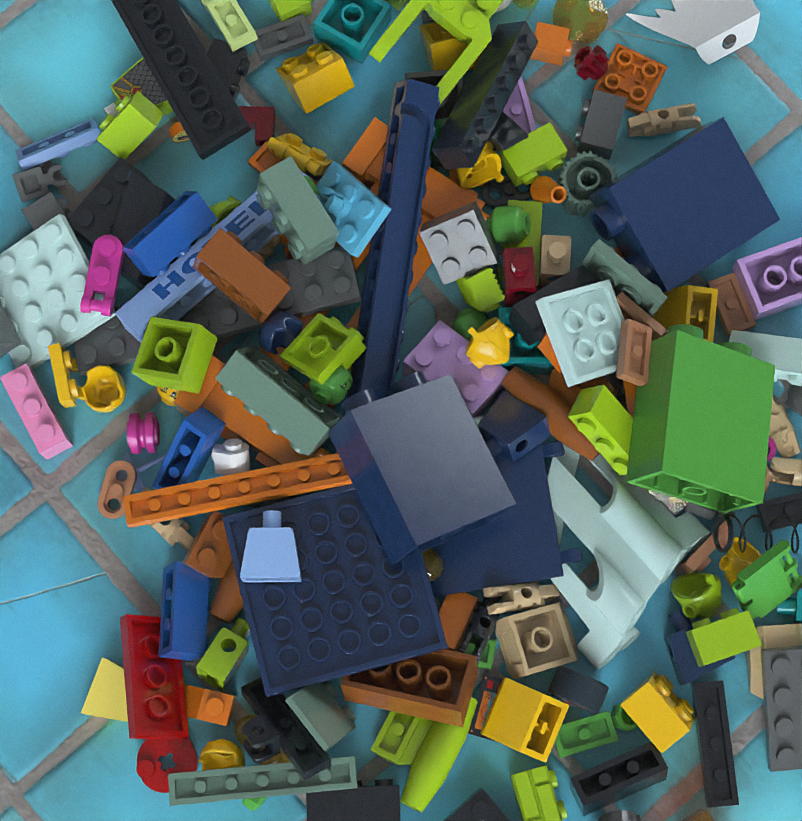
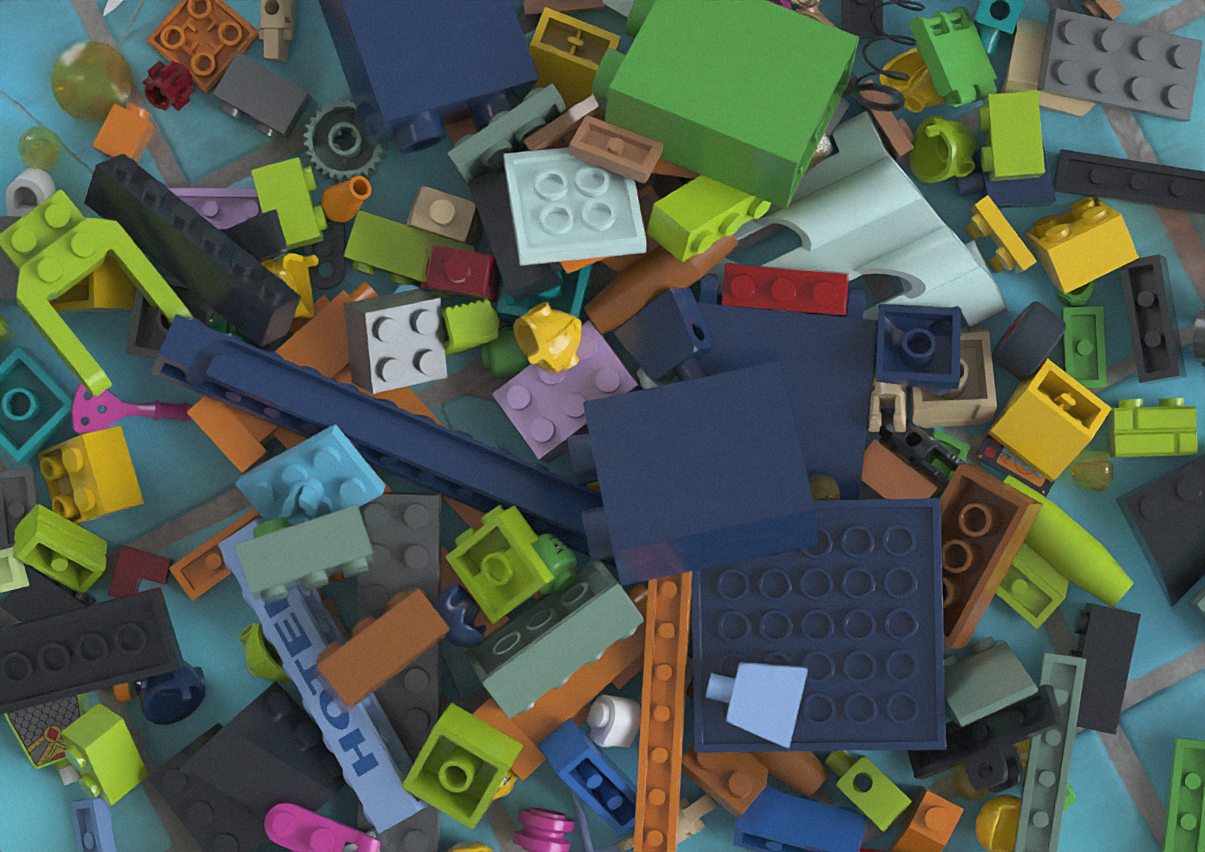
camera: 70 degrees left, 10 degrees up
(170, 234) = (286, 733): blue brick -> none
(181, 162) = (171, 695): none -> dark blue helmet
(262, 65) = (60, 549): none -> lime brick
(306, 158) = (202, 526): yellow plate -> none
(363, 77) = (117, 409): none -> dark pink piece
(496, 762) = (1092, 470): none -> clear yellow piece
(509, 224) = (384, 265): bright green head -> none
(552, 607) = (919, 347): none -> dark blue slope
(568, 503) = (785, 289): none -> red plate
(639, 659) = (1011, 250): none -> yellow plate

